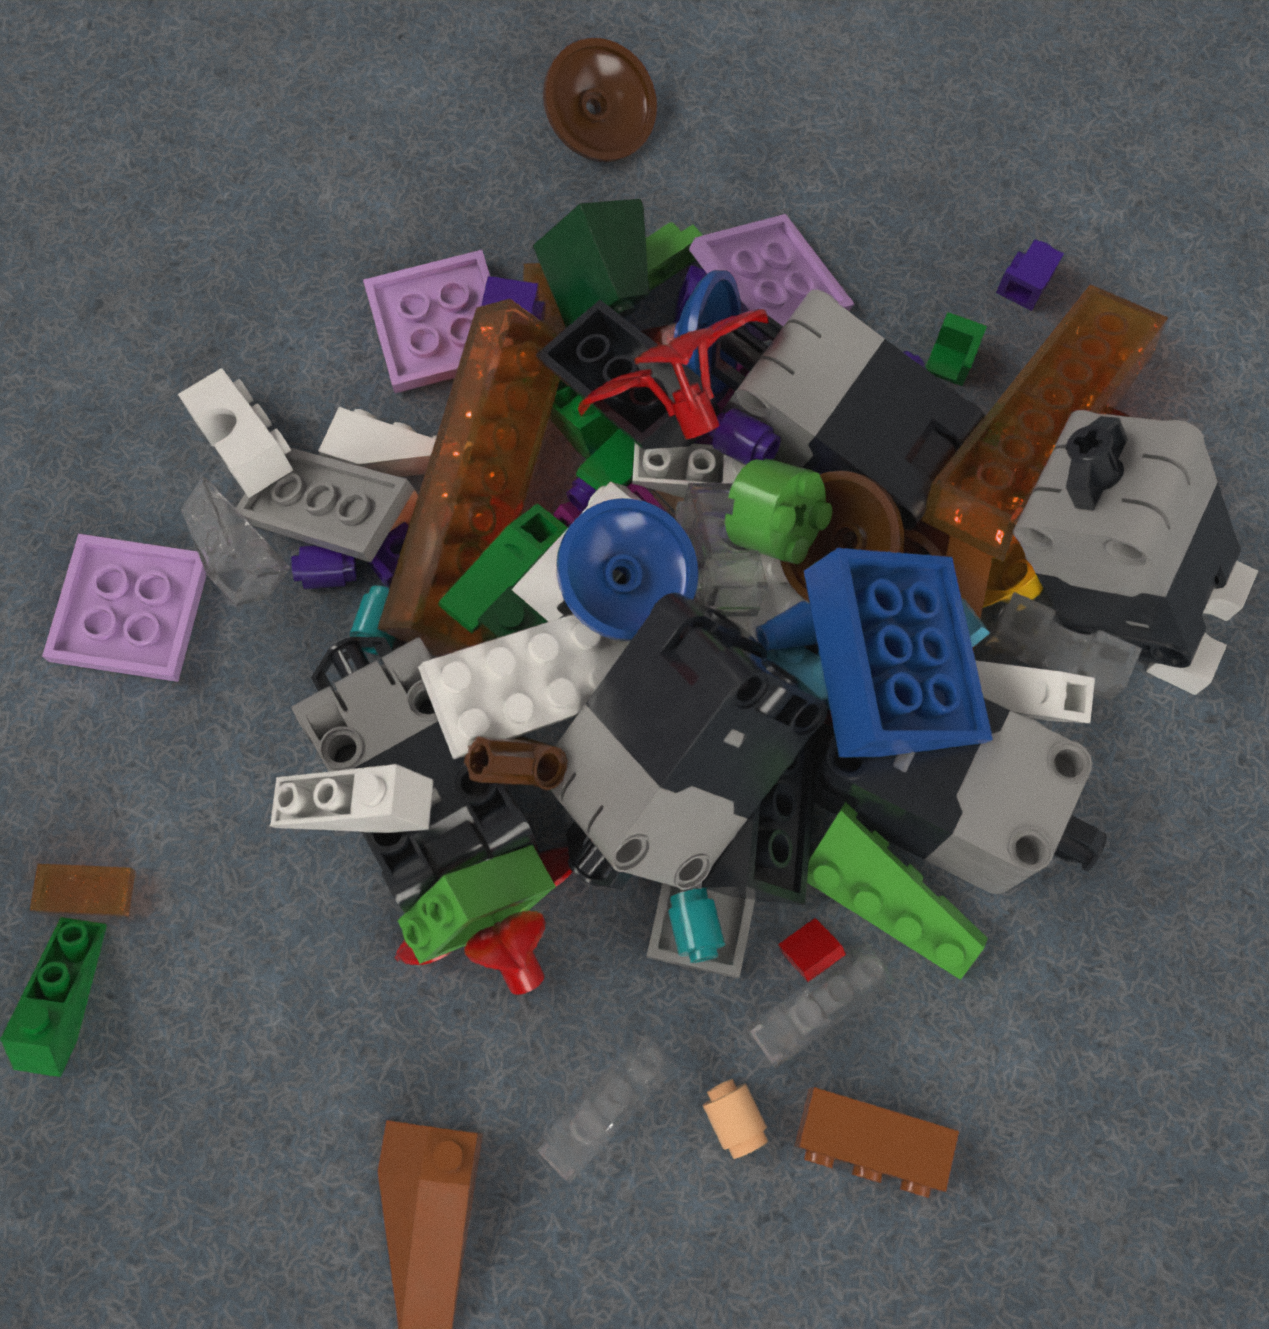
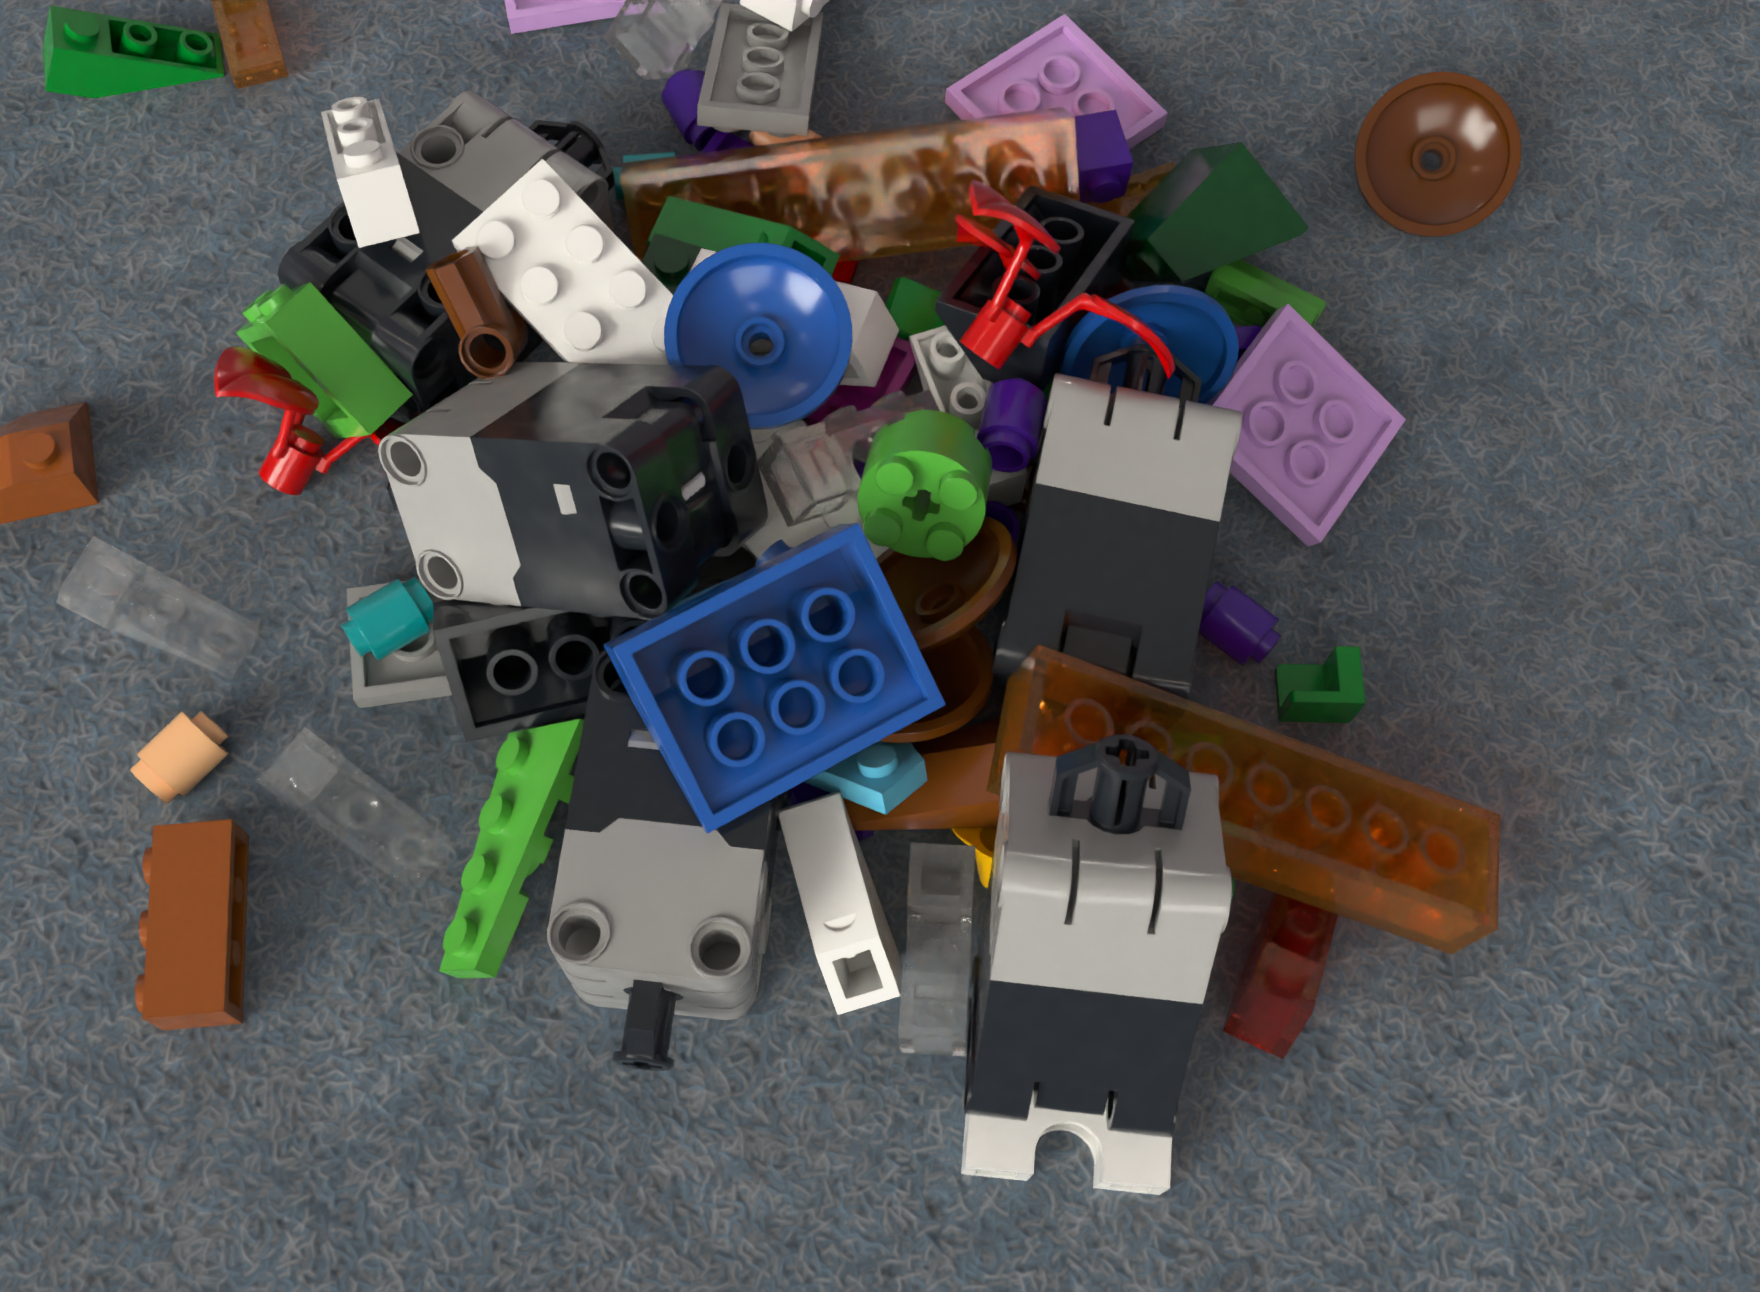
camera: 65 degrees right, 5 degrees down
(376, 445) = (859, 87): white slope -> none
(811, 949) = (416, 774): red tile -> none
(1030, 274) = (1488, 747): dark purple brick -> none

